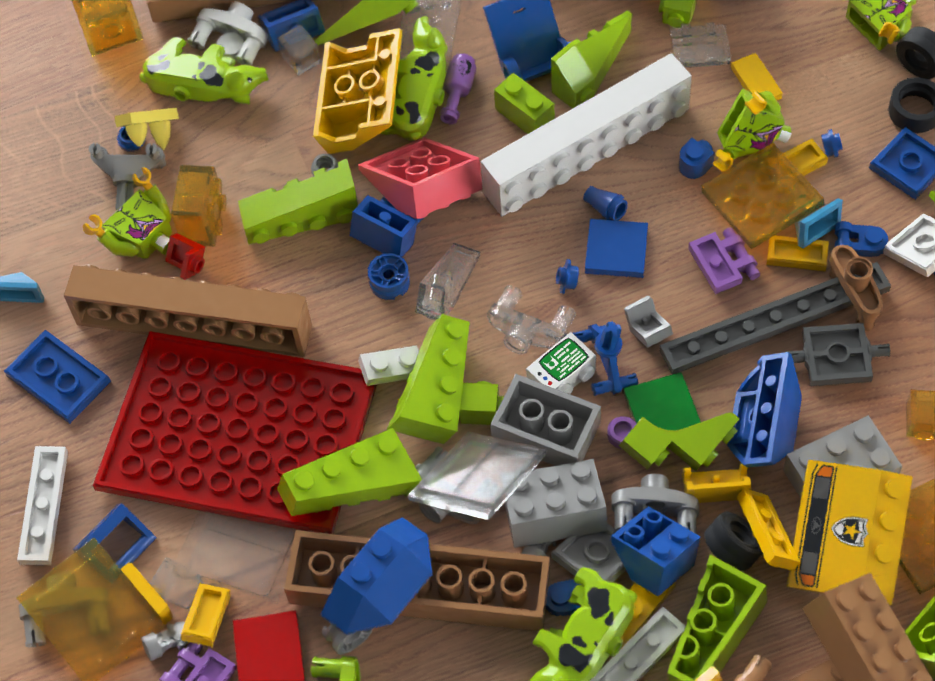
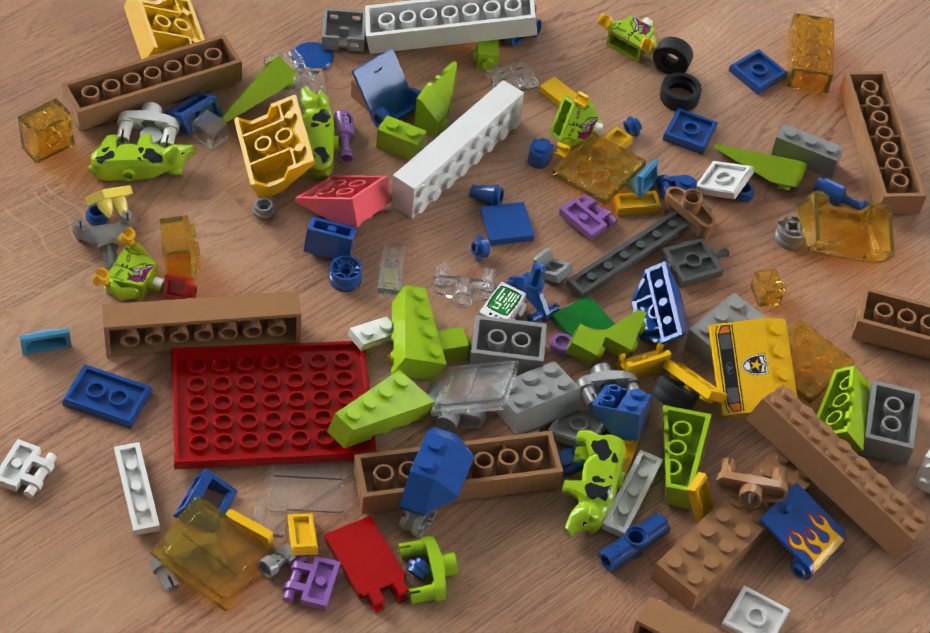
camera: 30 degrees left, 10 degrees down
(300, 205) = (259, 235): lime wedge -> none

